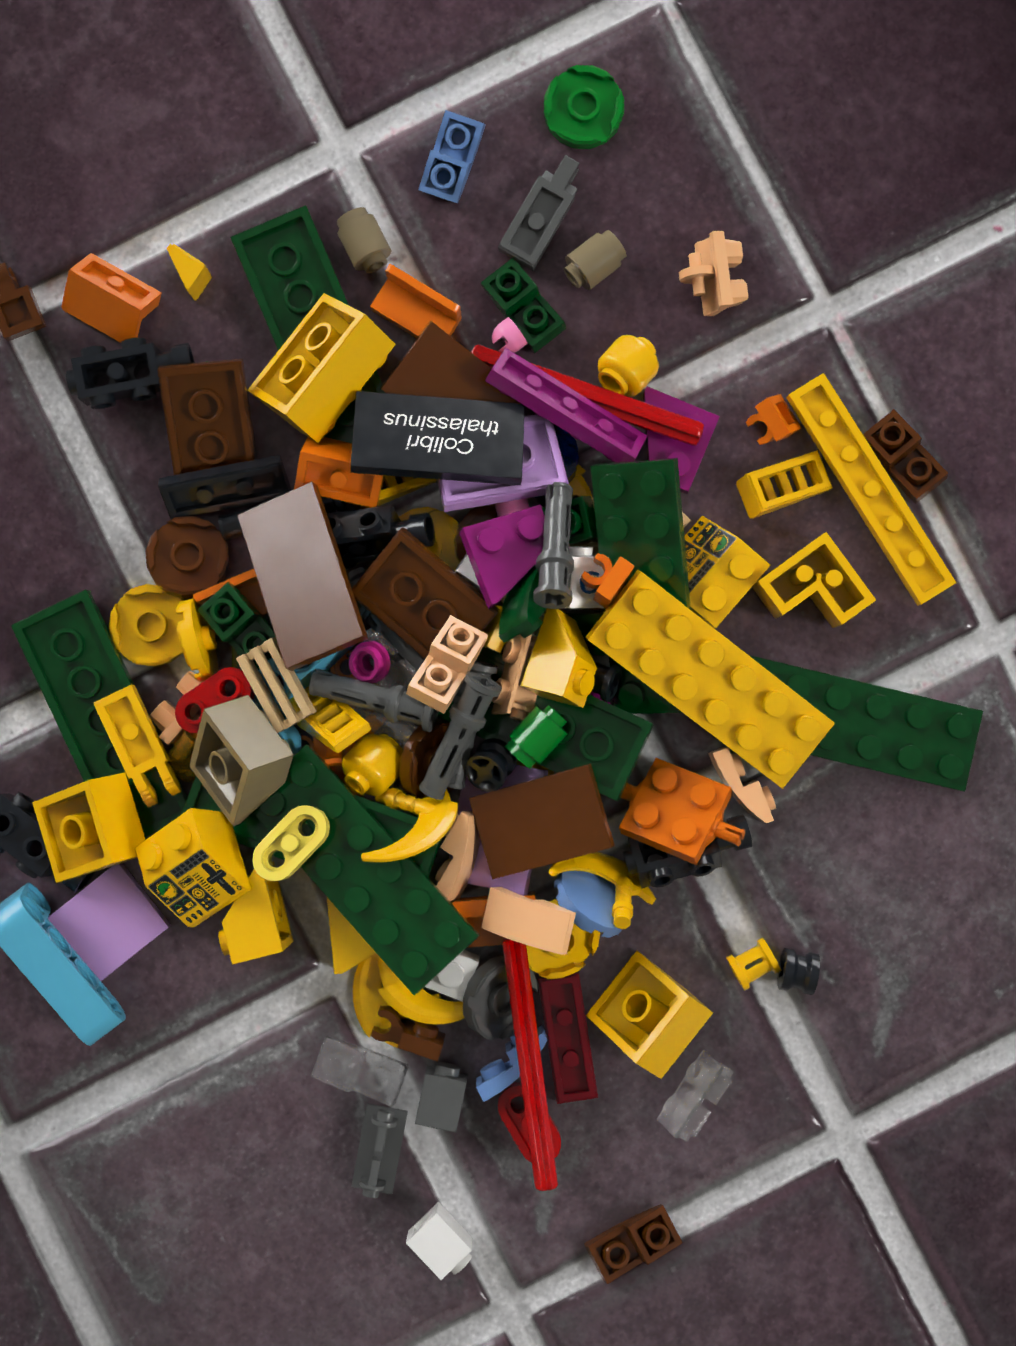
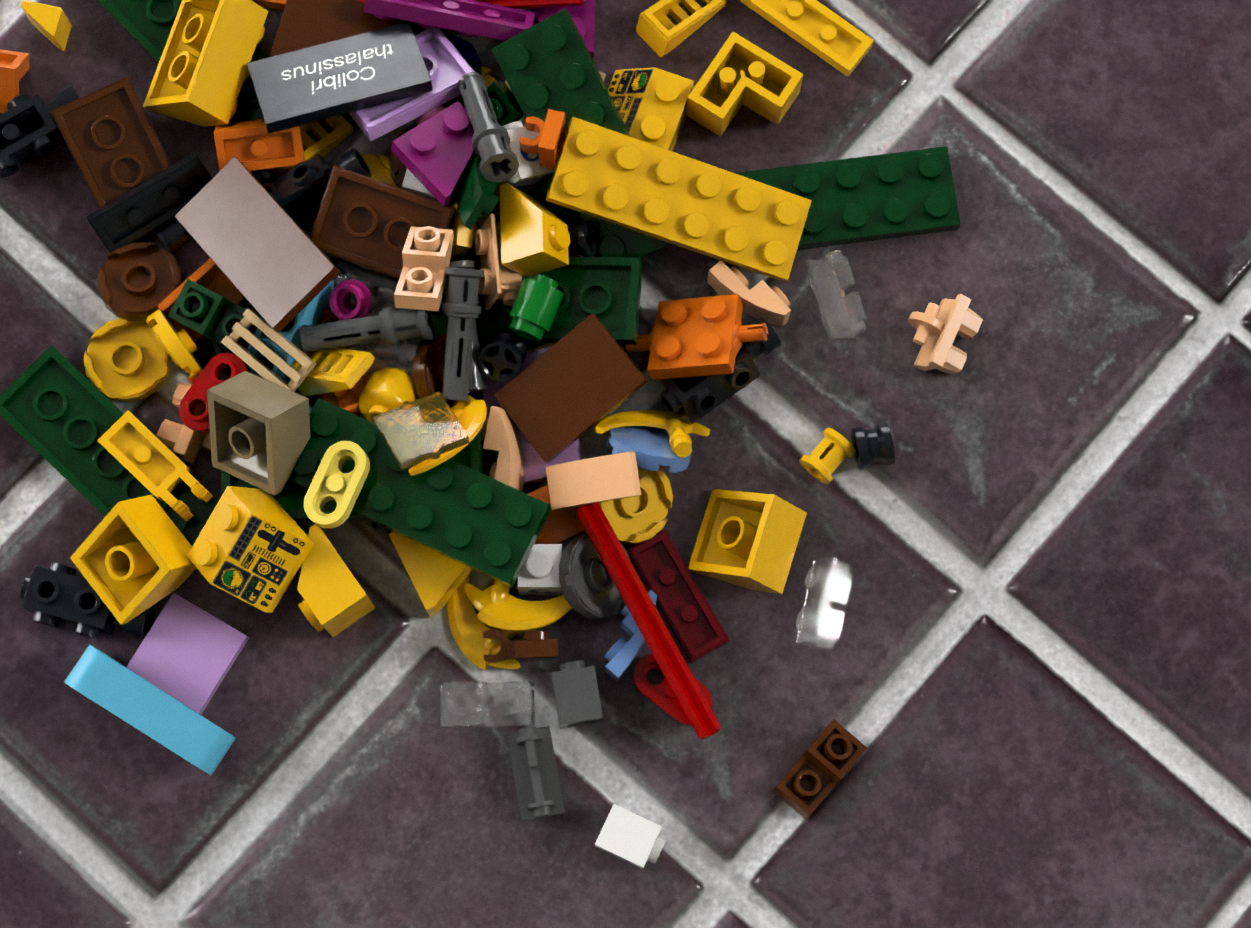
camera: 25 degrees left, 10 degrees down
(181, 755) = (201, 463): clear yellow arm -> none
(387, 819) = (421, 430): none -> clear yellow piece
(817, 835) = (841, 314): none -> clear hinge
(904, 888) = (938, 331): none -> light nougat hips

